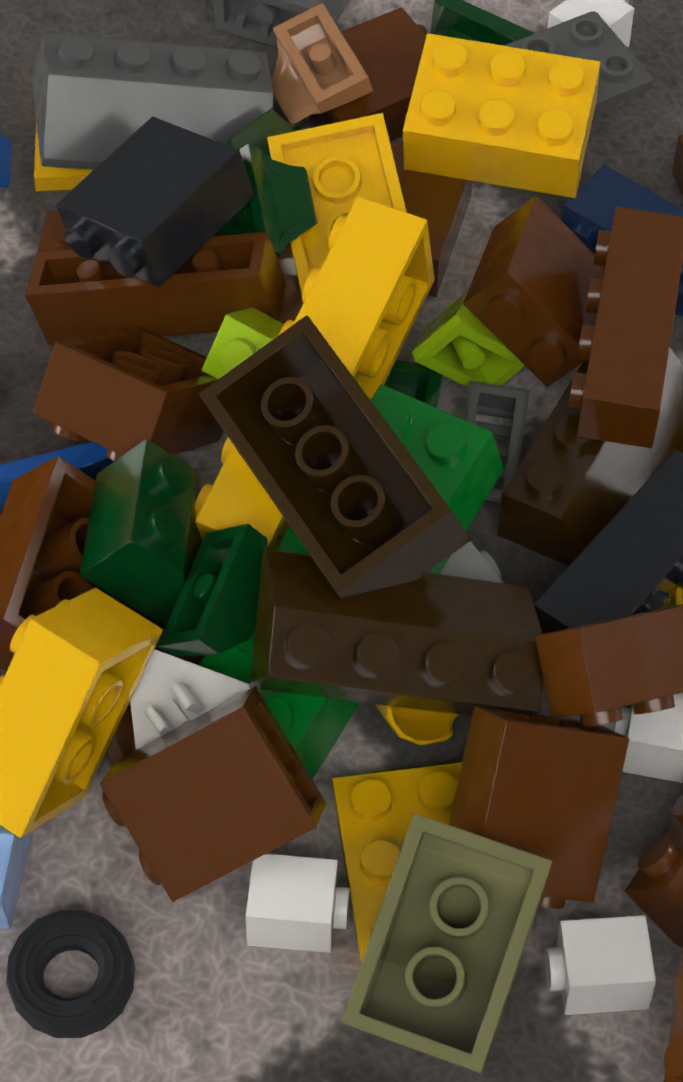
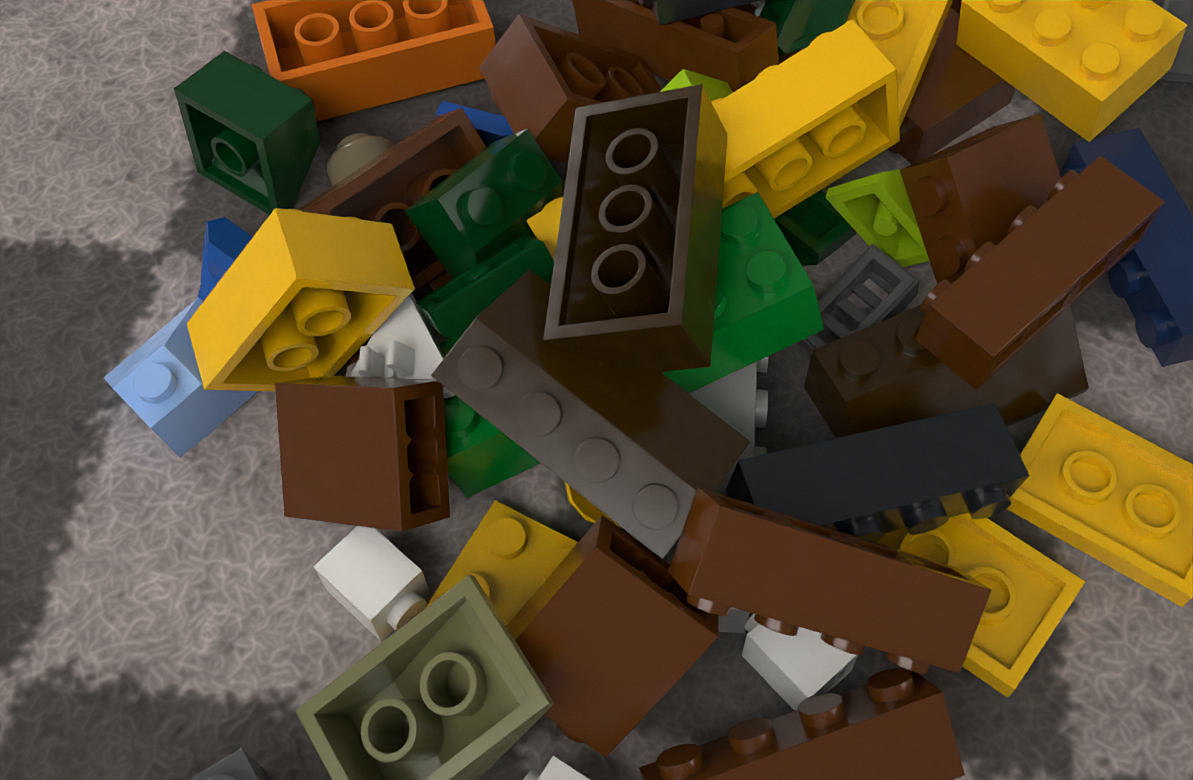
camera: 40 degrees right, 5 degrees up
(70, 932) = (152, 495): black tyre -> none

